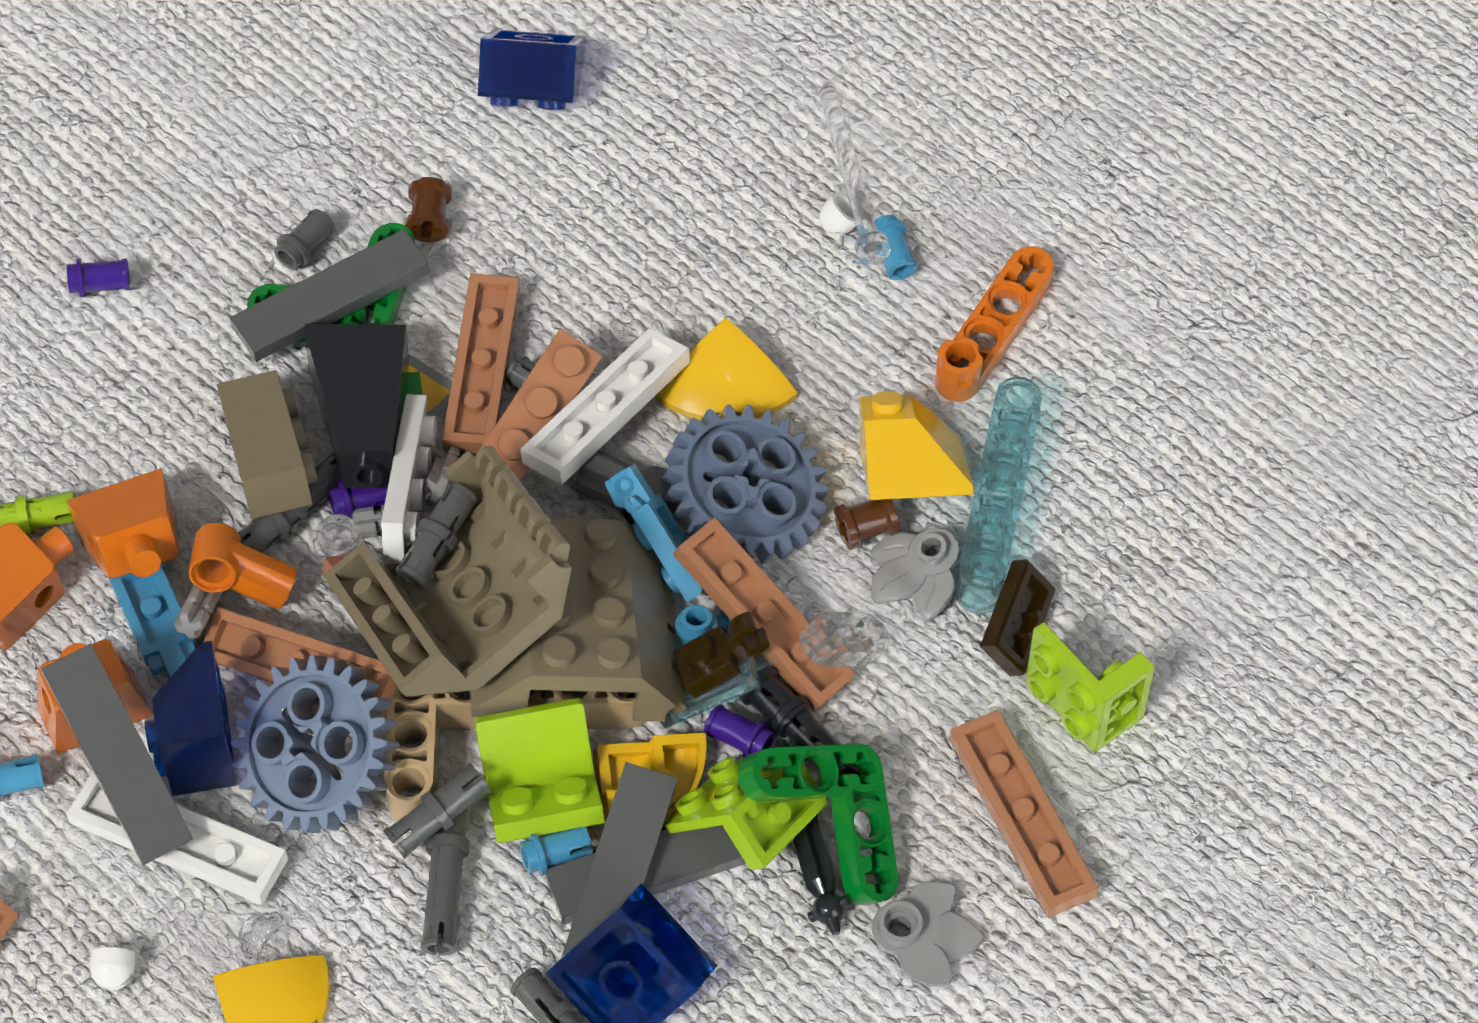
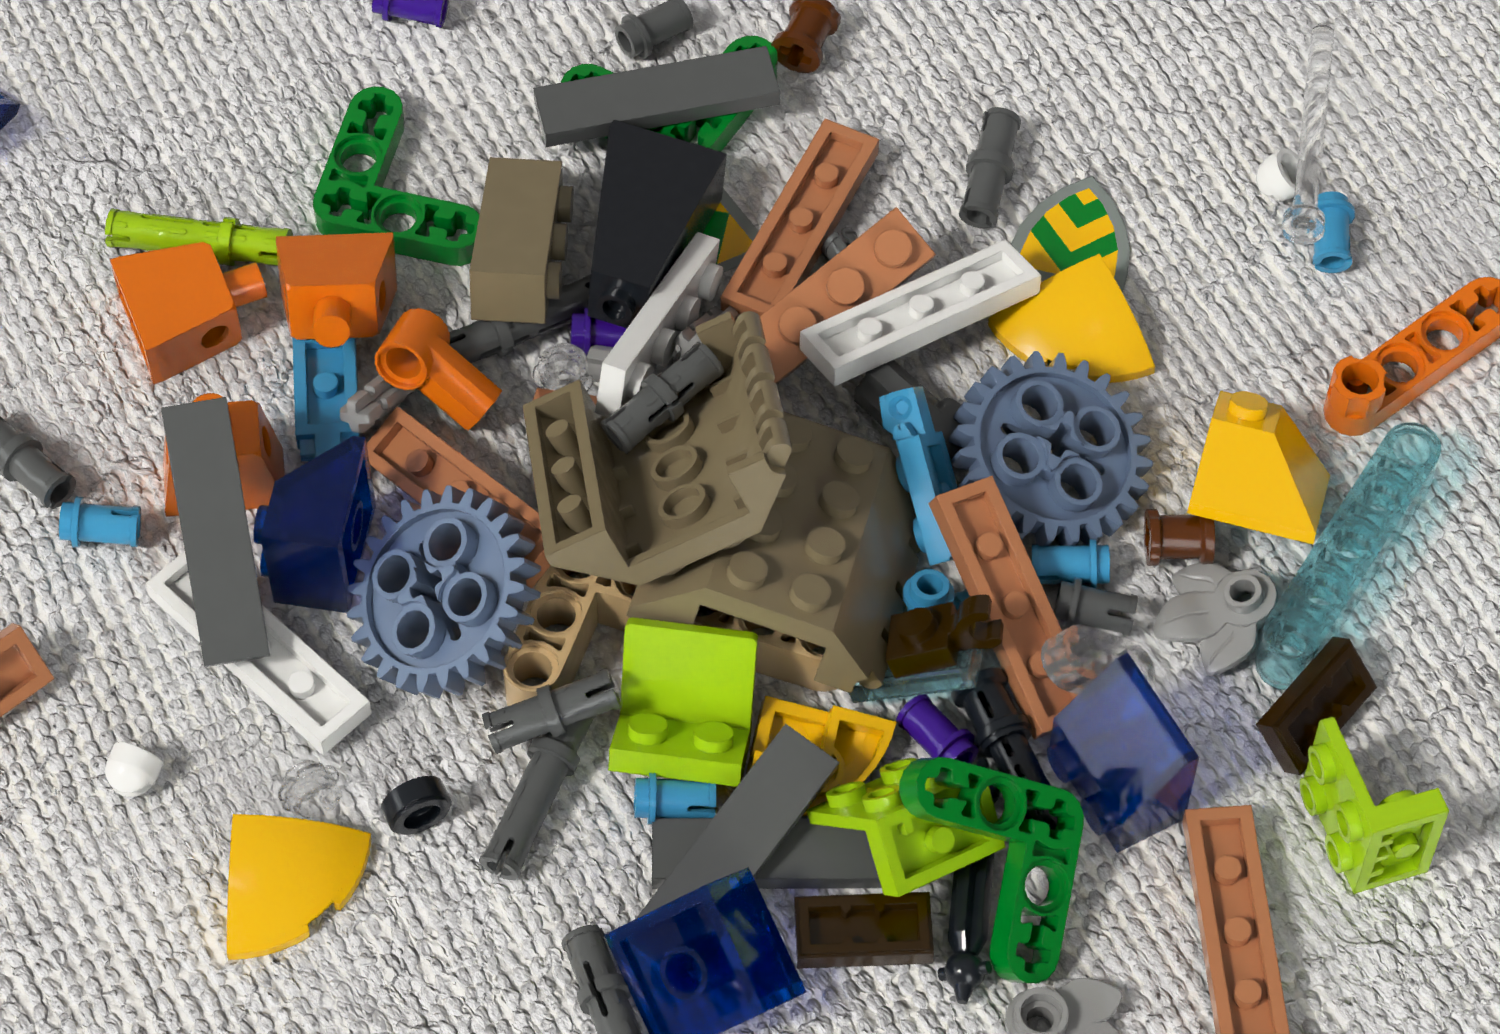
camera: 20 degrees right, 0 degrees up
(119, 442) = (366, 191): none -> green beam
(354, 920) = (416, 805): none -> black tile
(613, 274) = (990, 167): none -> dark grey pin
(695, 303) = (1072, 228): none -> sticker
(740, 903) = (863, 930): none -> dark brown plate
(795, 565) = (1067, 562): none -> dark azure pin
(820, 594) = (1090, 606): none -> dark grey pin
(891, 702) = (1123, 756): none -> clear blue slope

